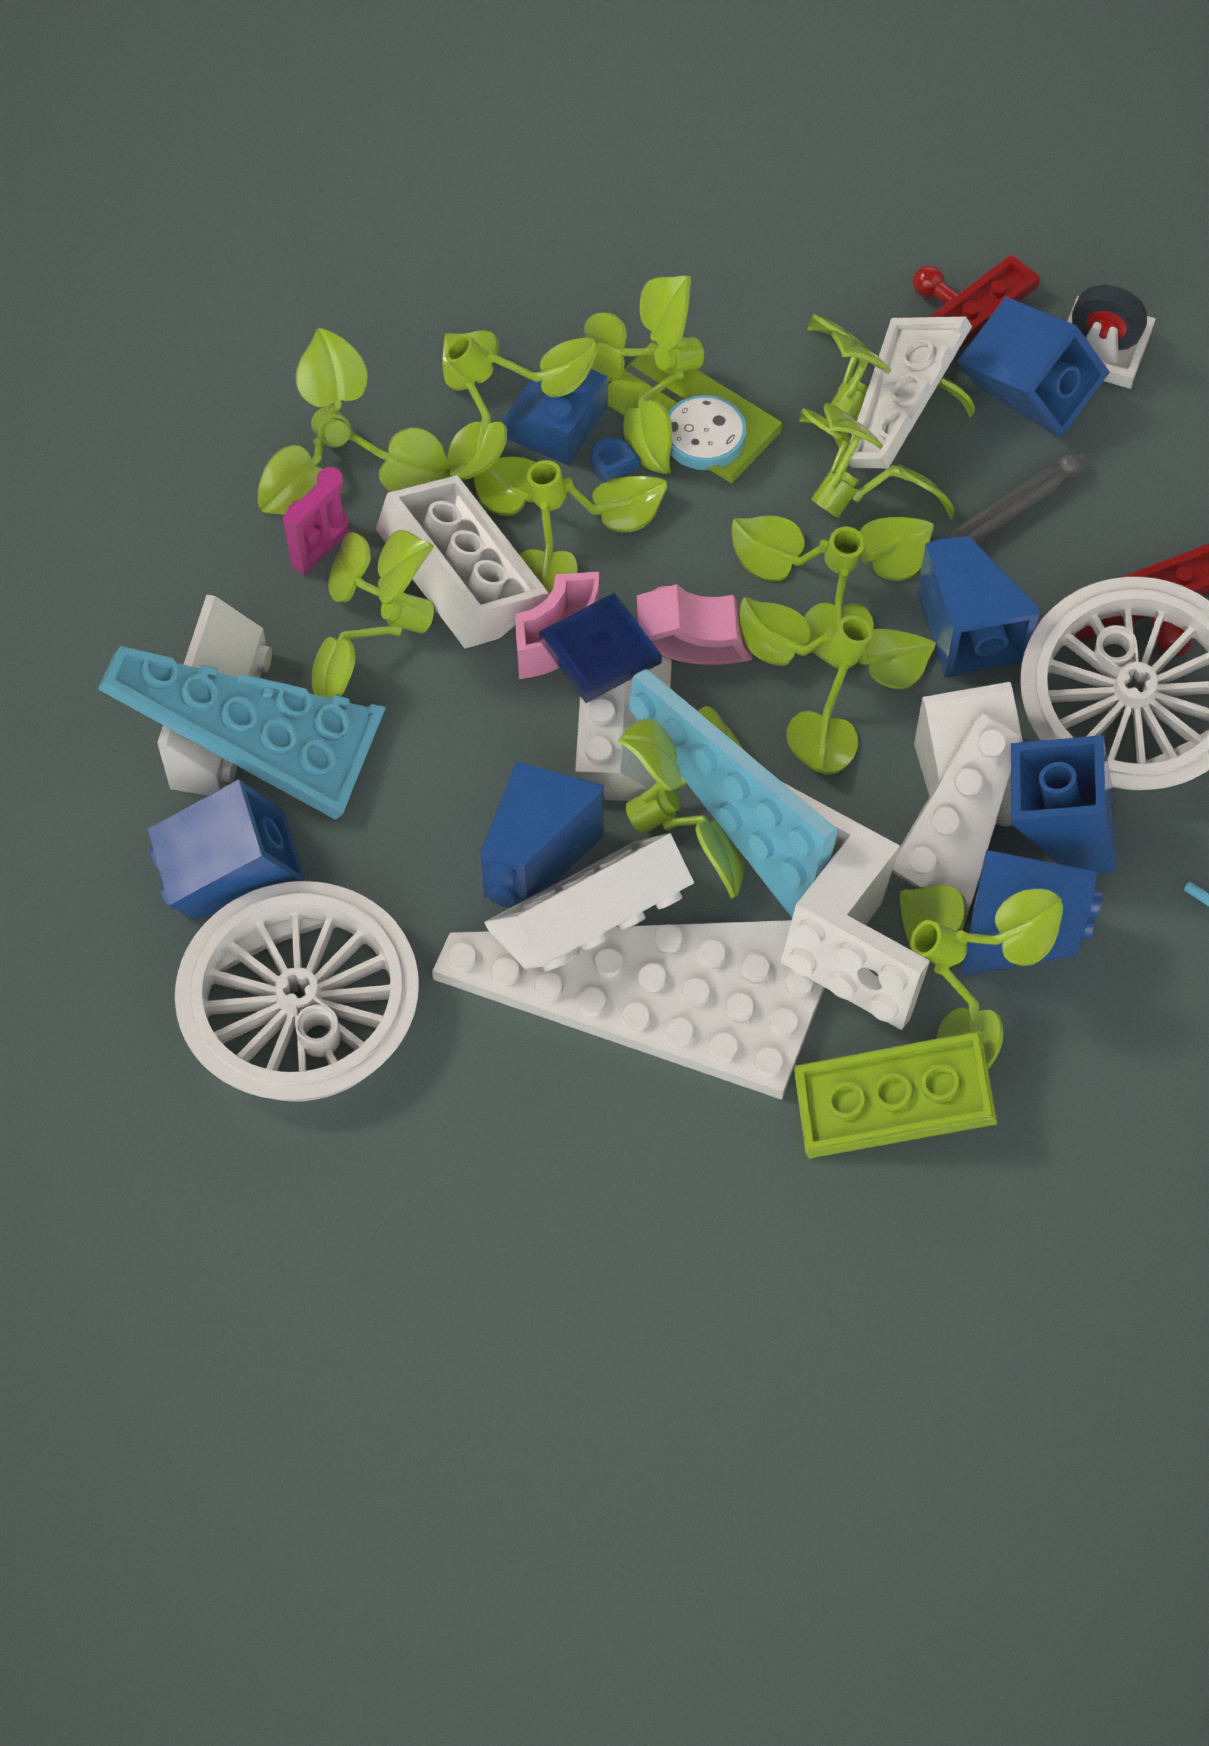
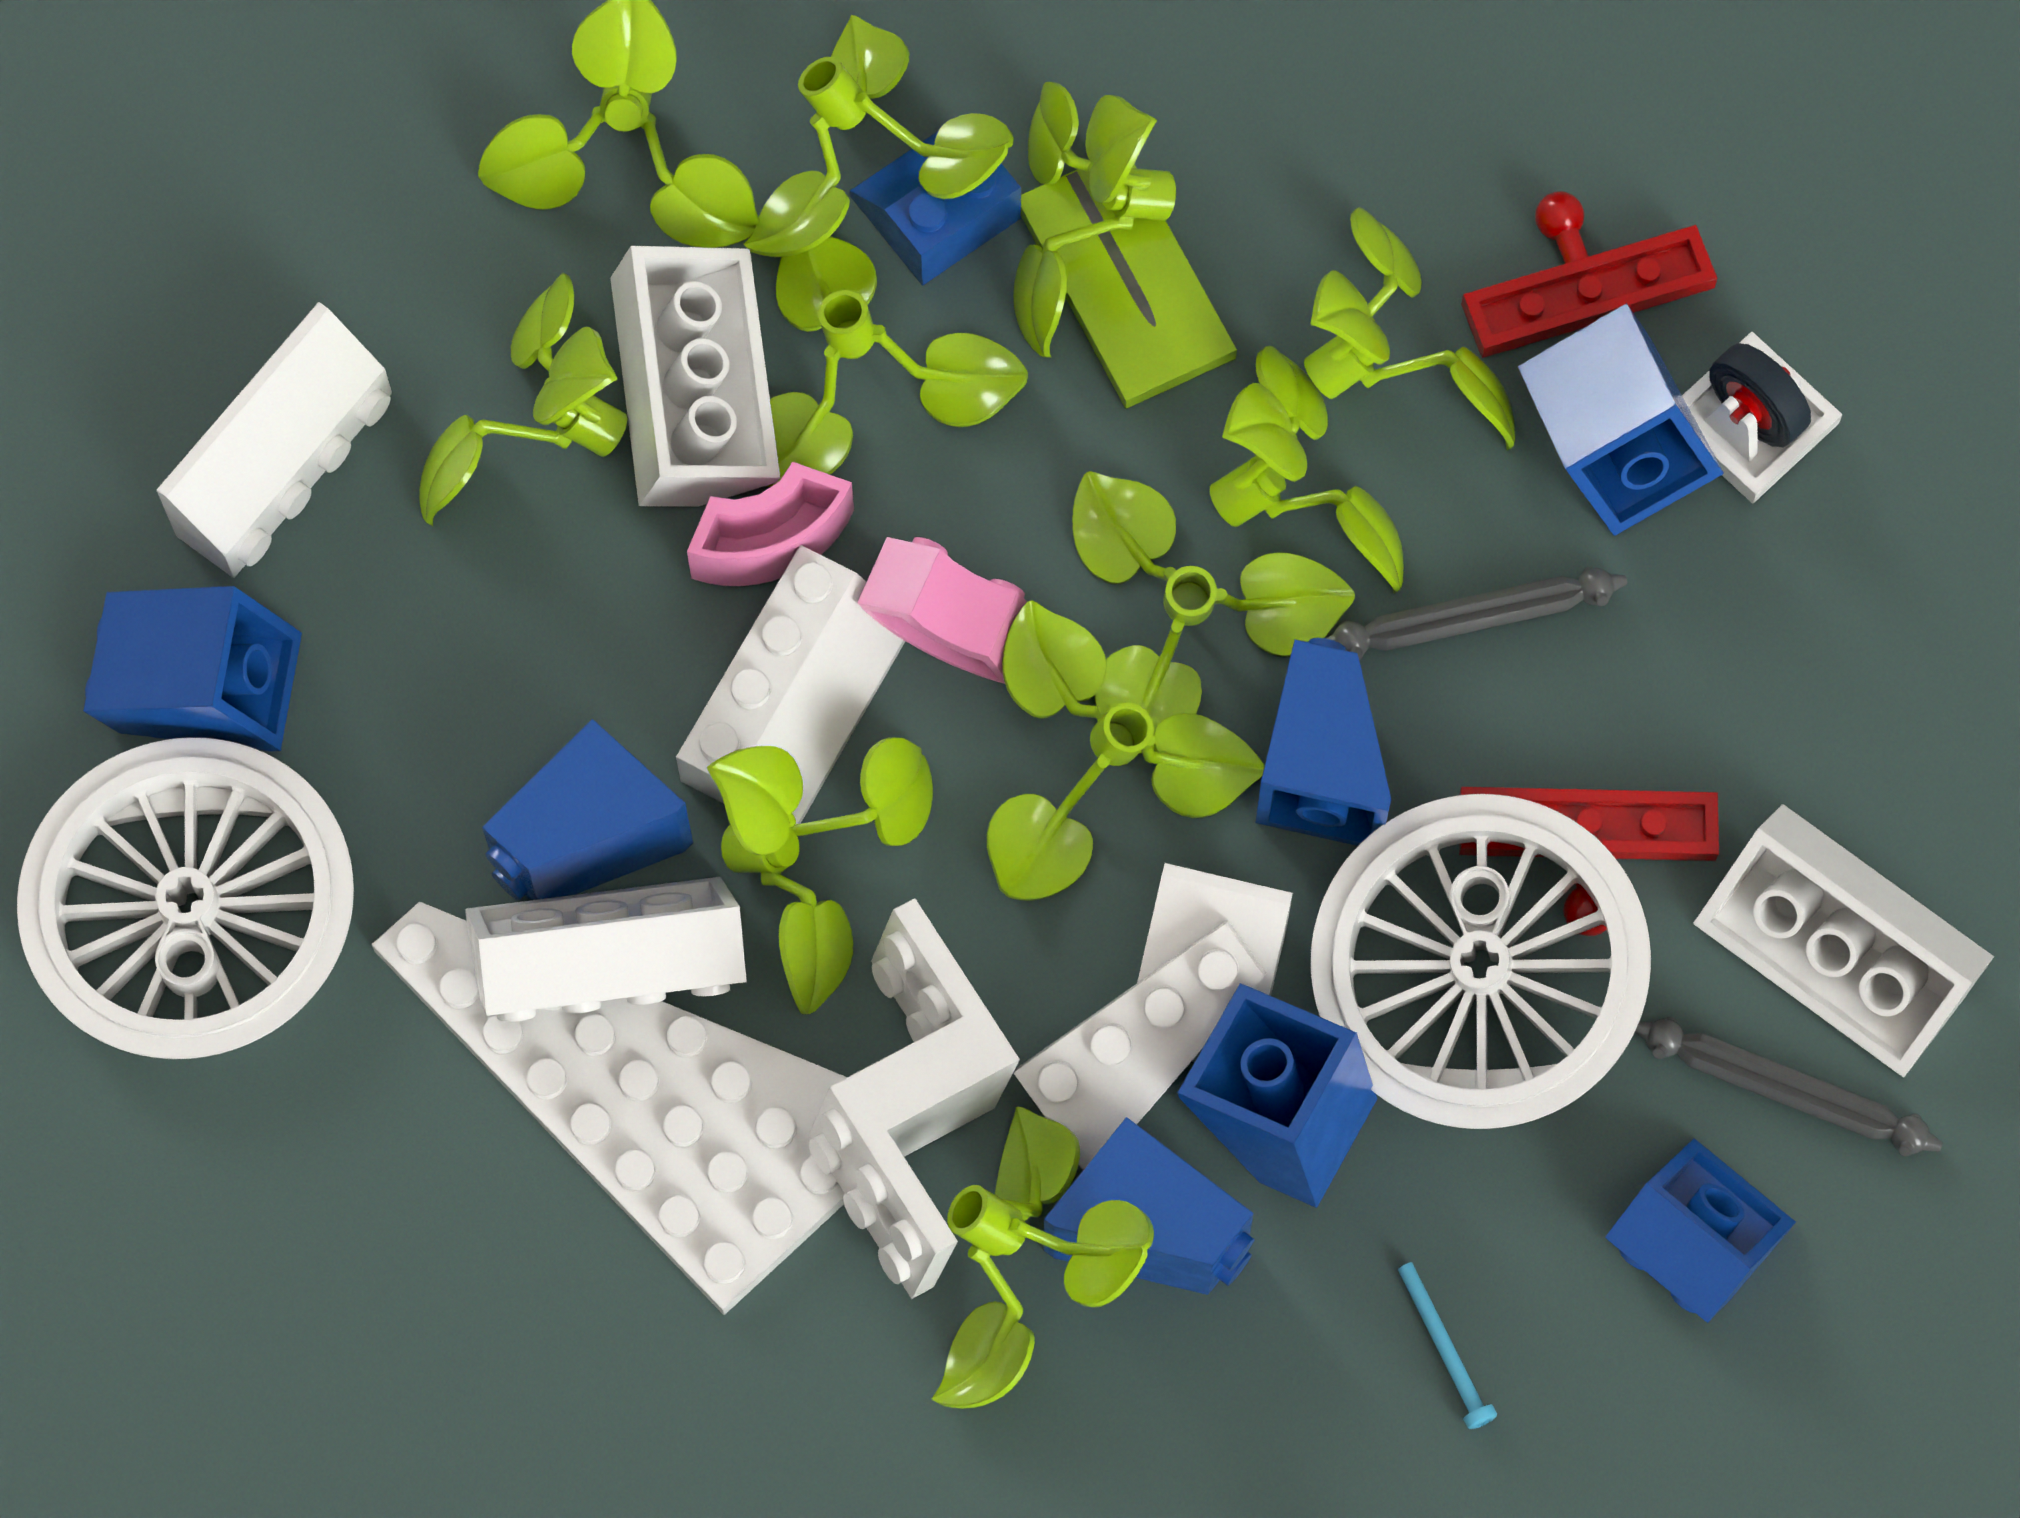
camera: 25 degrees right, 10 degrees up
(263, 726) = (320, 528): medium azure wing -> none
(316, 521) = (511, 241): dark pink plate -> none
(600, 647) = (791, 597): clear blue tile -> none
(613, 459) = (982, 303): blue tile -> none
(706, 432) = (1119, 323): white tile -> none
(760, 814) = (859, 902): medium azure wing -> none
(894, 1095) = (855, 1381): lime tile -> none
(918, 357) = (1435, 357): white wing -> none

